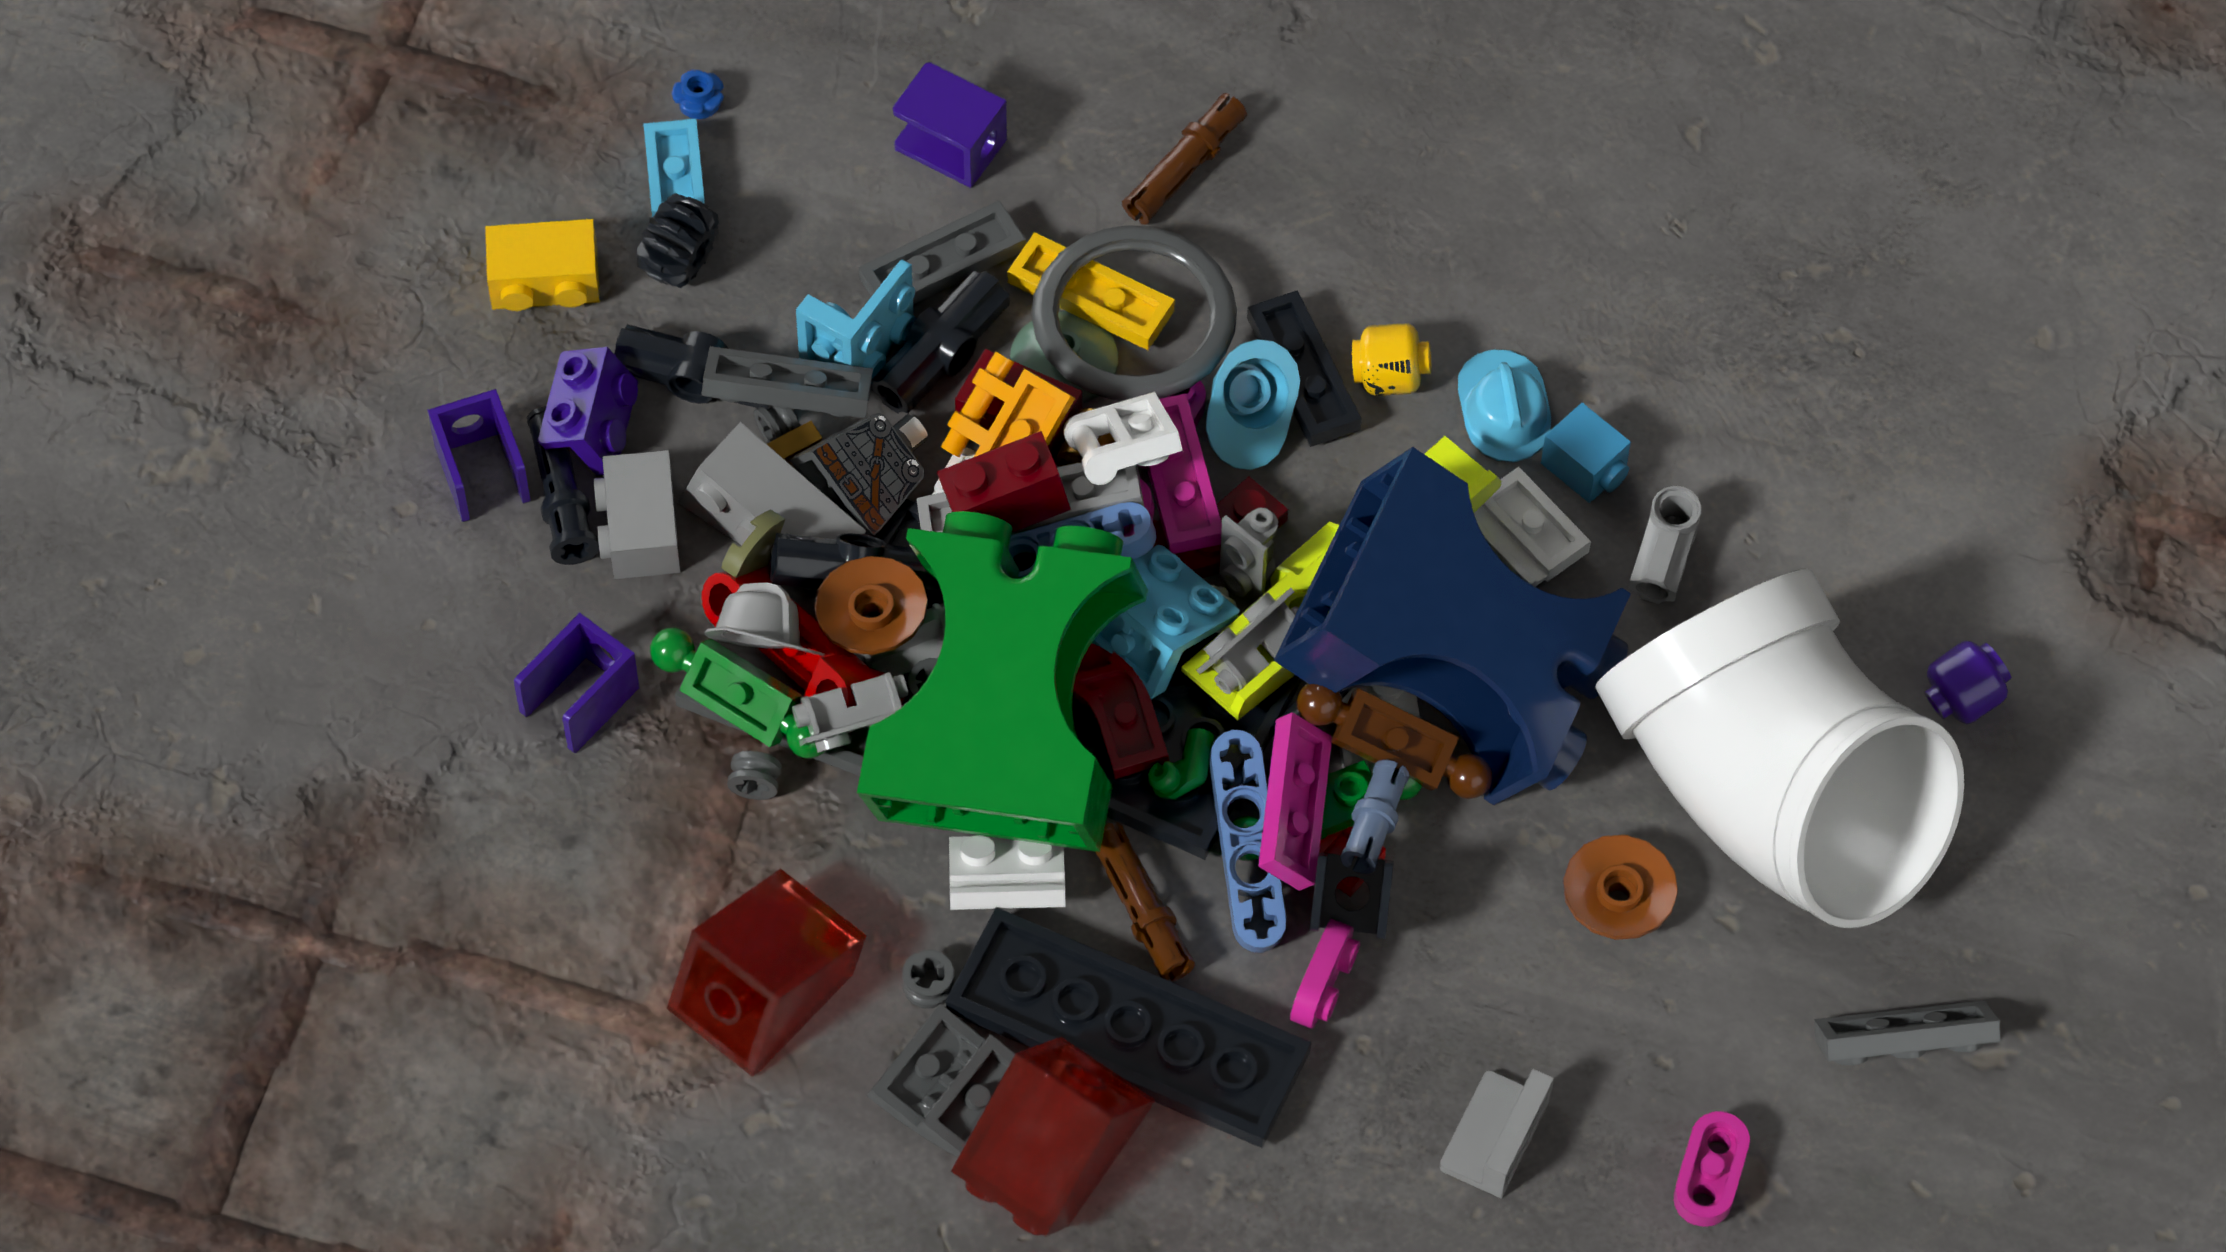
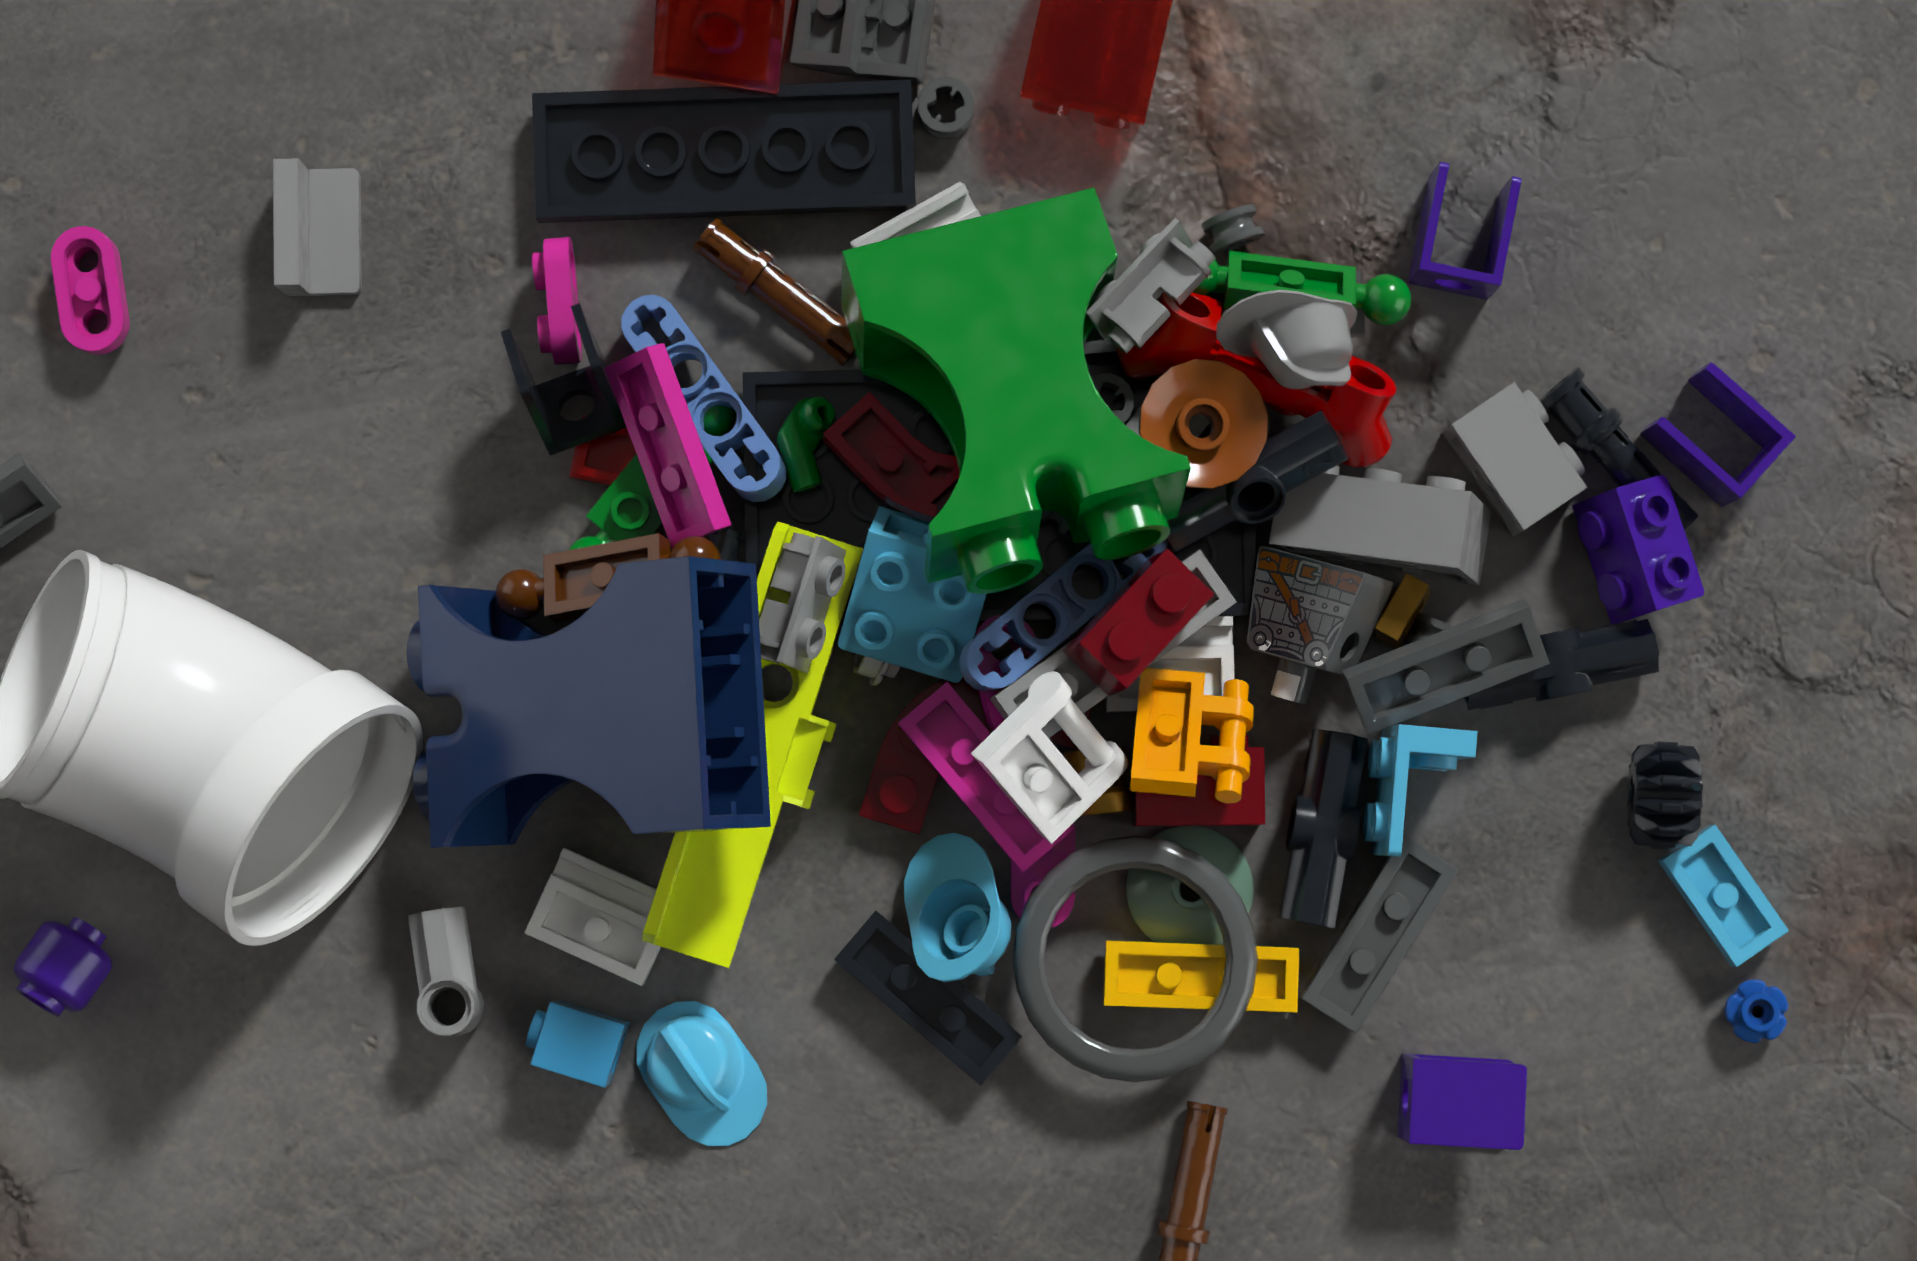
camera: 150 degrees right, 25 degrees up
(542, 264) = (1790, 701): yellow brick -> none
(757, 548) = (1362, 461): olive tile -> none
(1248, 553) = (860, 719): light grey hinge -> none
(1375, 816) = (585, 480): sand blue pin -> none
(1390, 359) = (839, 1050): yellow head -> none
(1625, 866) = (281, 541): dark orange dish -> none

